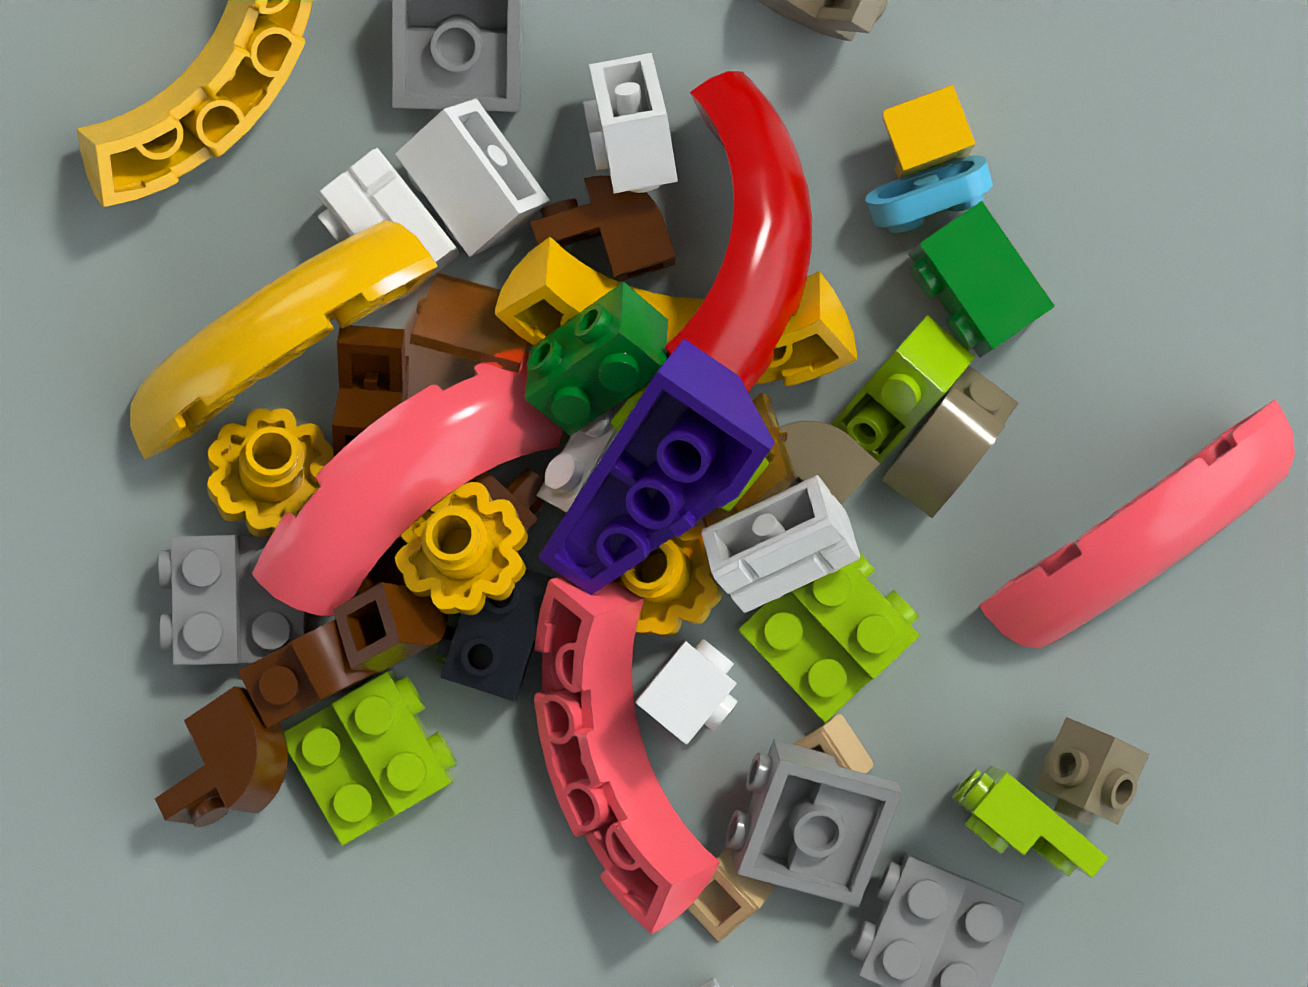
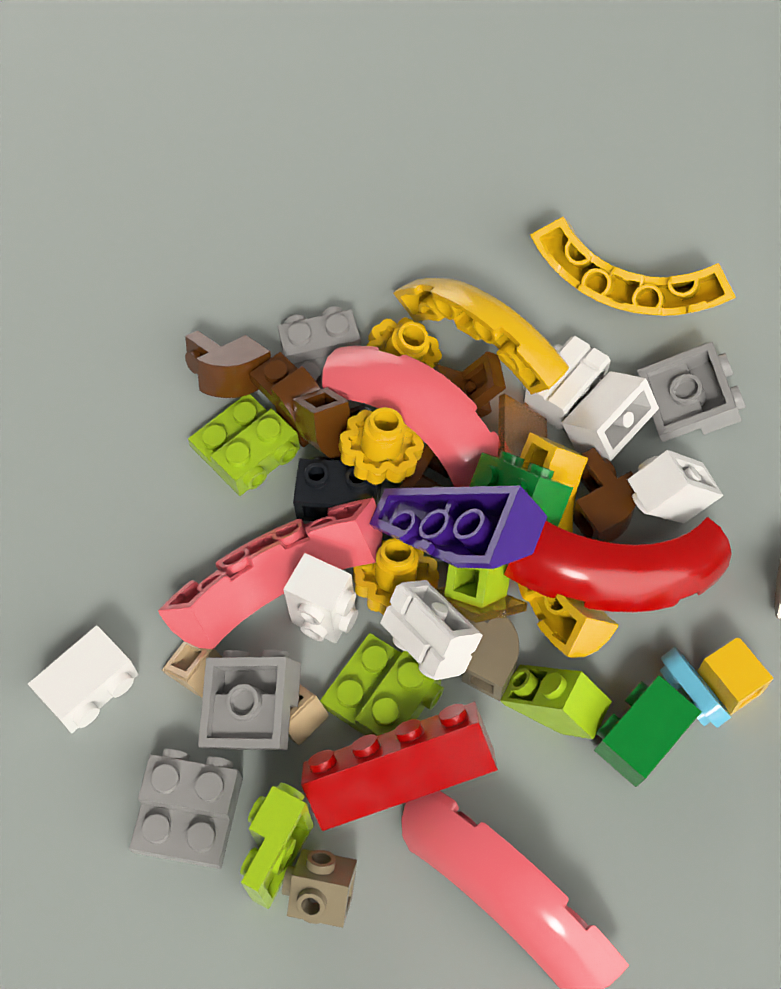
camera: 80 degrees right, 25 degrees down
(950, 442) = (535, 734): dark tan brick -> none
(963, 634) = (398, 765): none -> red brick

